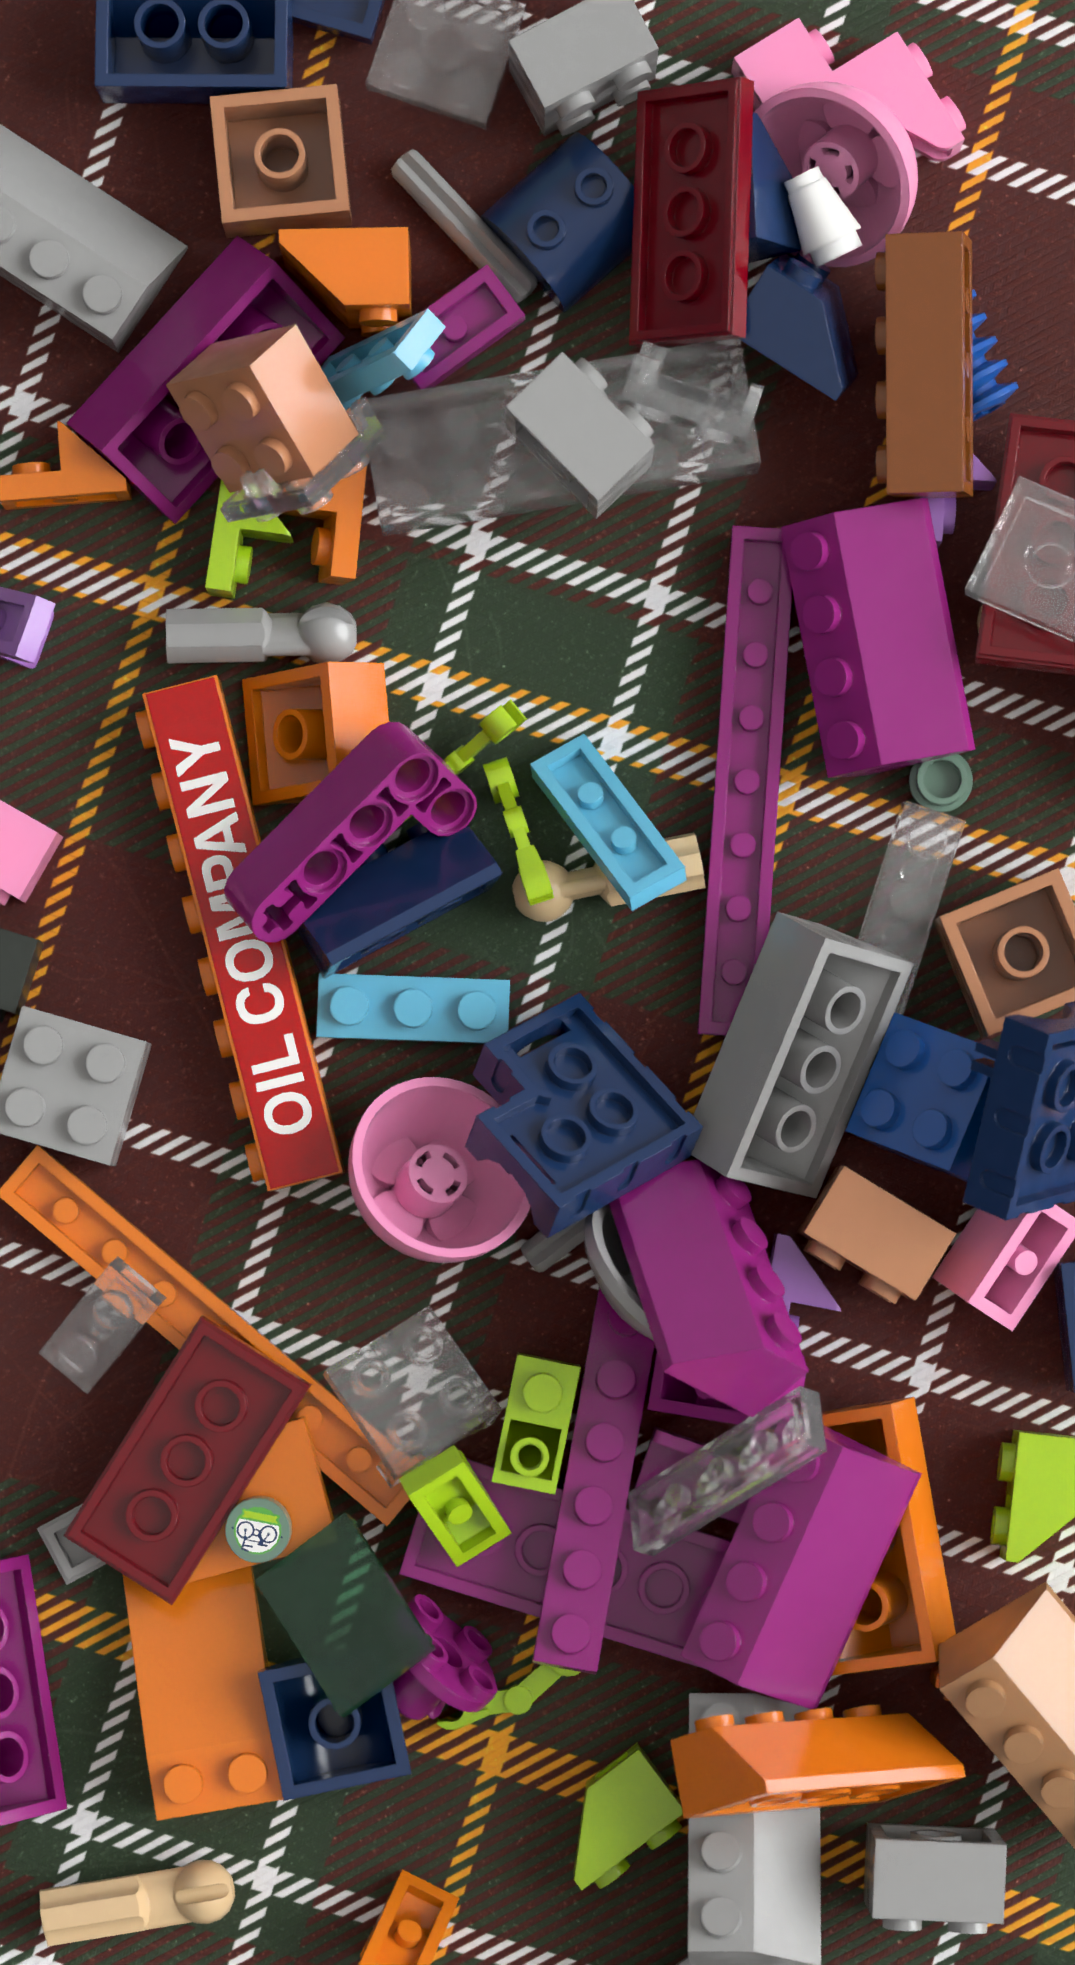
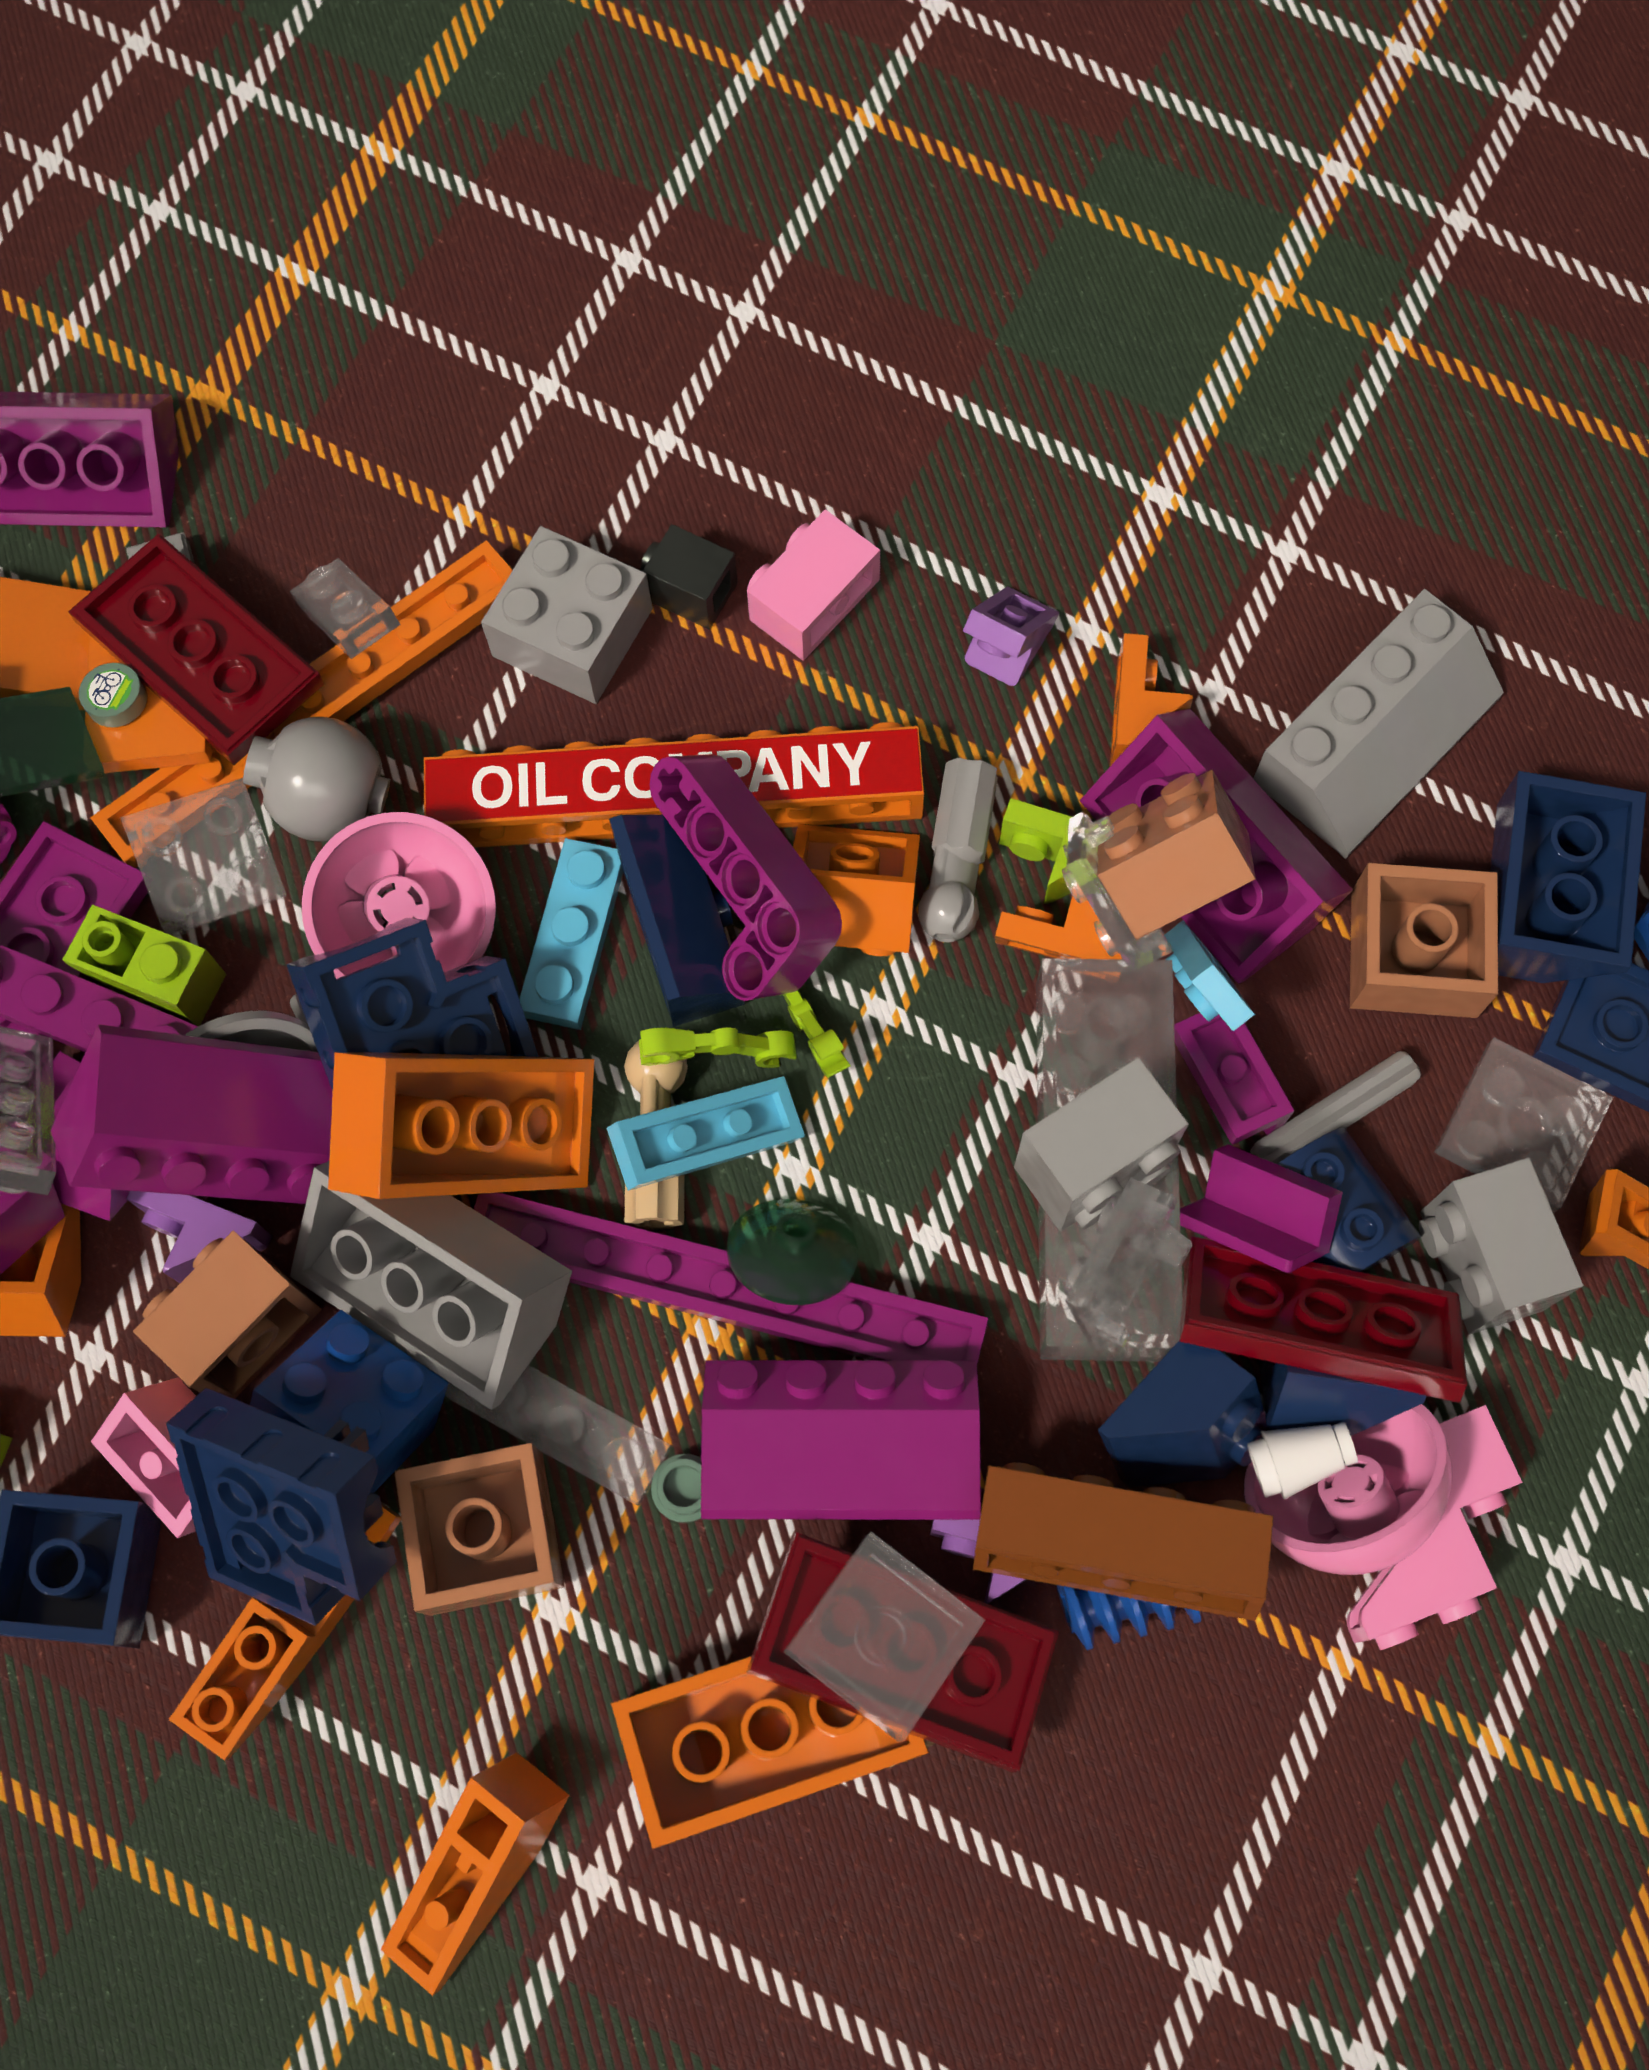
camera: 105 degrees right, 15 degrees down
(310, 1293) = (317, 777): none -> light grey brick
(354, 272) = (1302, 987): orange slope -> none
(455, 1505) = (85, 867): lime slope -> none
(592, 282) = (1264, 1210): none -> magenta panel
(658, 1050) = (458, 1124): none -> orange slope
(725, 725) = (792, 1251): none -> clear green dish

